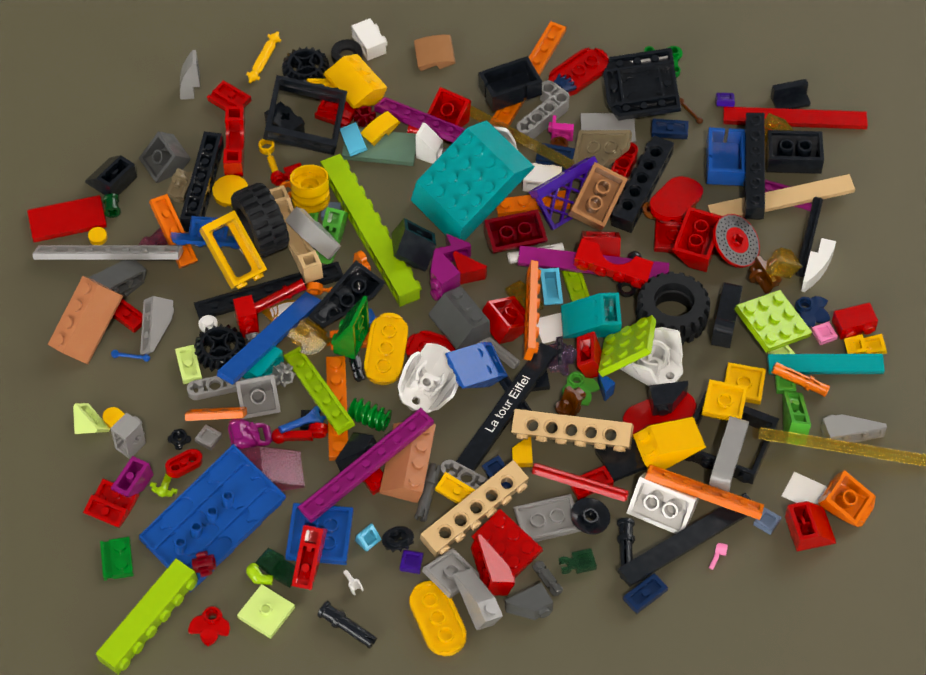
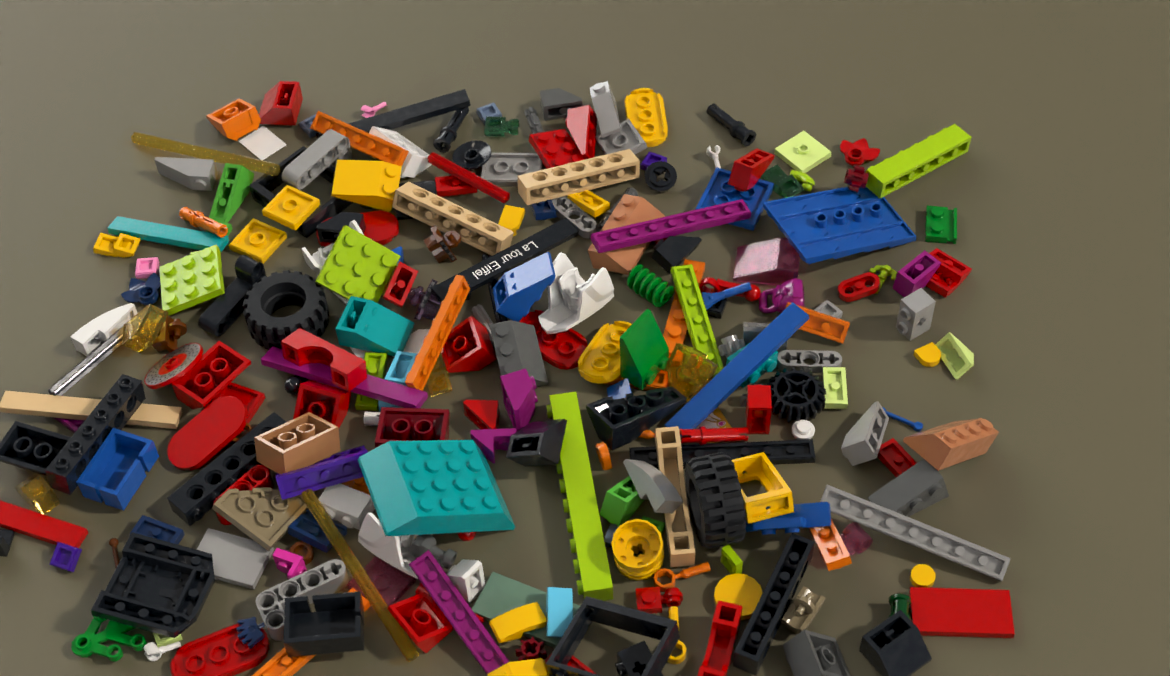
camera: 160 degrees left, 5 degrees down
(177, 434) = (859, 316): black plate -> none
(368, 537) = (689, 190): medium azure slope -> none
(586, 384) = (427, 270): bright green plate -> none
(598, 581) = (488, 111): none -> sand blue tile
(645, 593) = (450, 88): dark blue plate -> none
(854, 321) = (110, 264): red brick -> none

